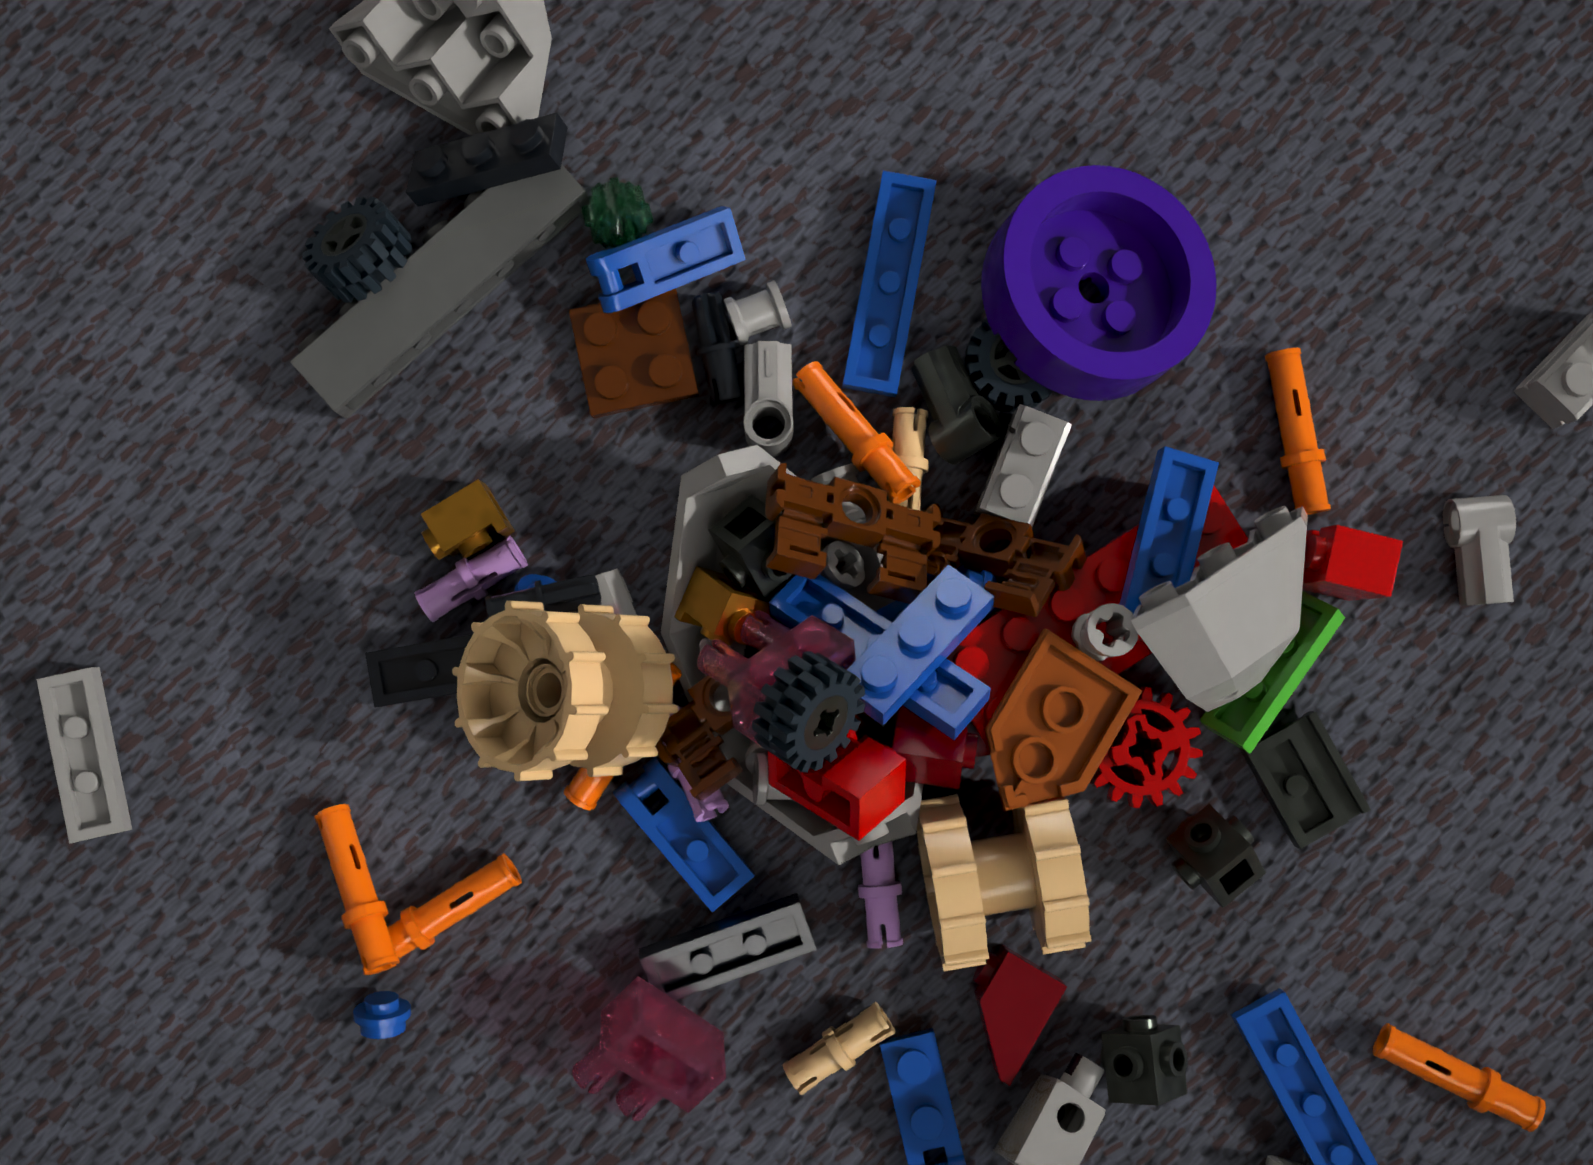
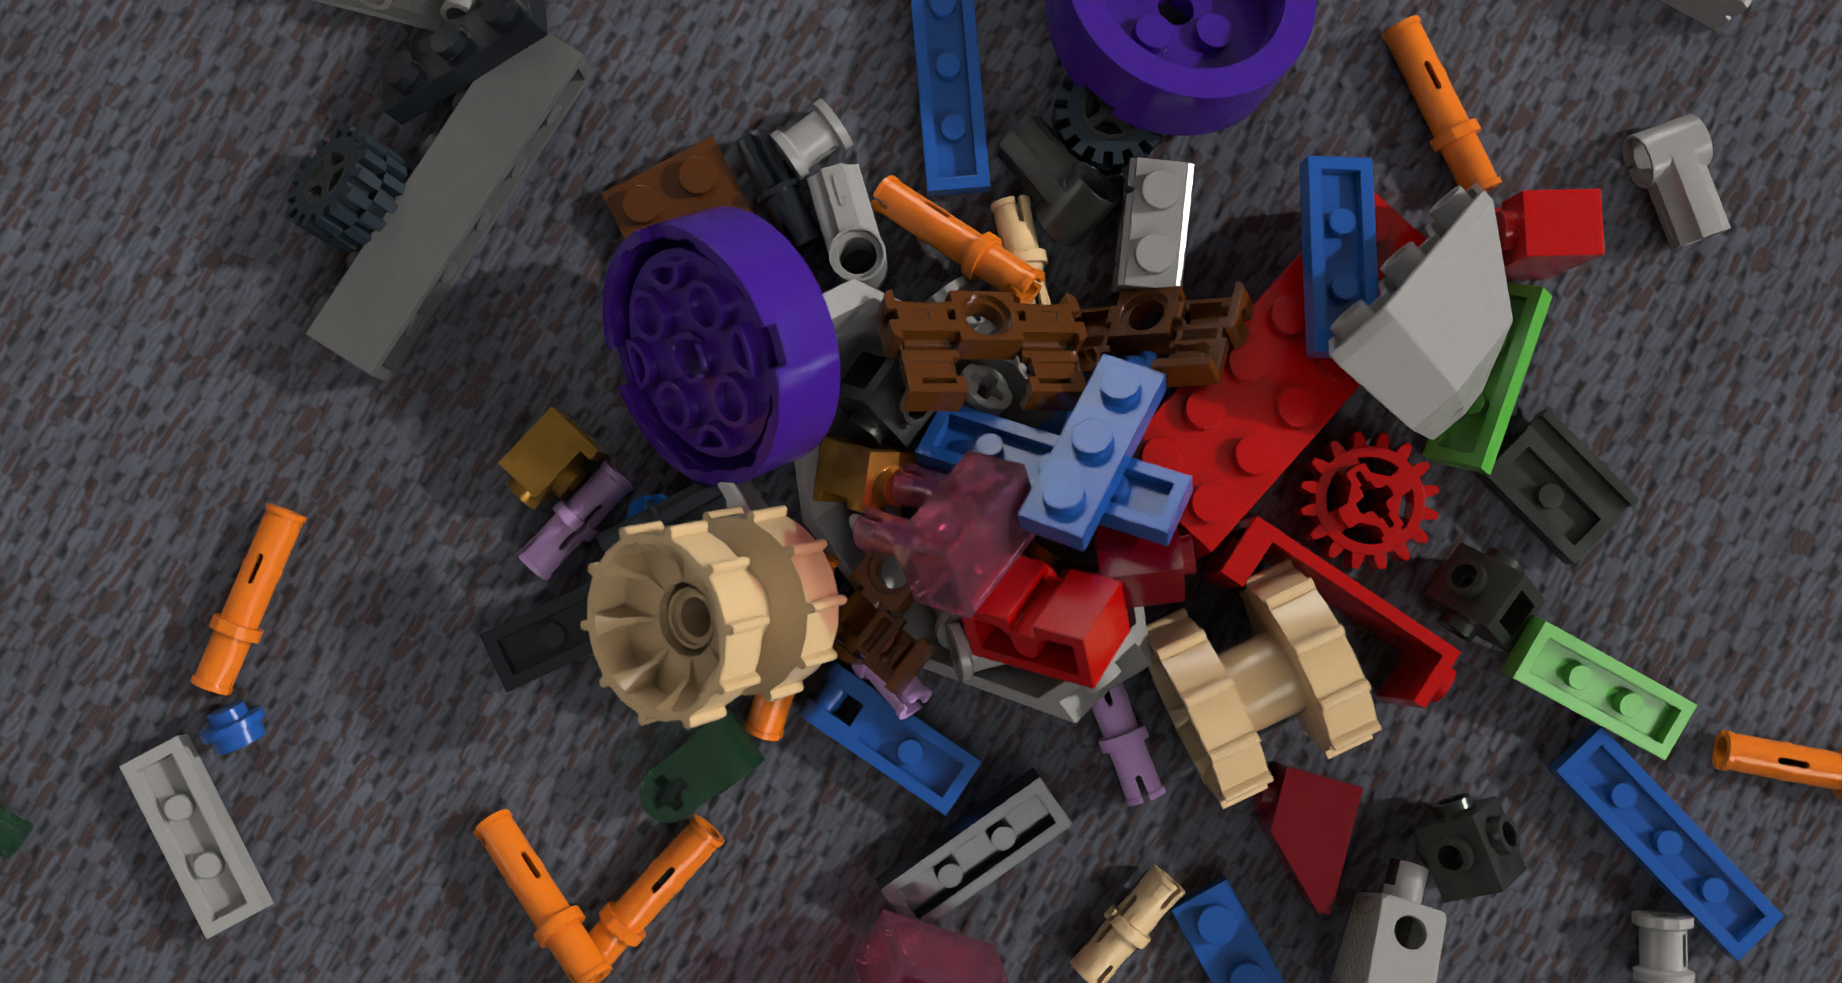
camera: 15 degrees left, 0 degrees up
(139, 673) = (233, 727): none -> blue plate
(180, 570) = (247, 602): none -> orange pin
(526, 814) = (708, 764): none -> clear green piece
(616, 213) = (625, 72): clear green gear -> none
(632, 469) = (767, 351): none -> dark purple brick
(667, 259) = (695, 106): blue plate -> none
(808, 711) = (997, 557): black wheel -> none
(1055, 723) = (1273, 496): dark orange tile -> none
(1118, 626) = (1313, 367): light grey bush -> none
(1147, 901) = (1426, 662): none -> red panel
(1290, 958) = (1598, 687): none -> bright green plate

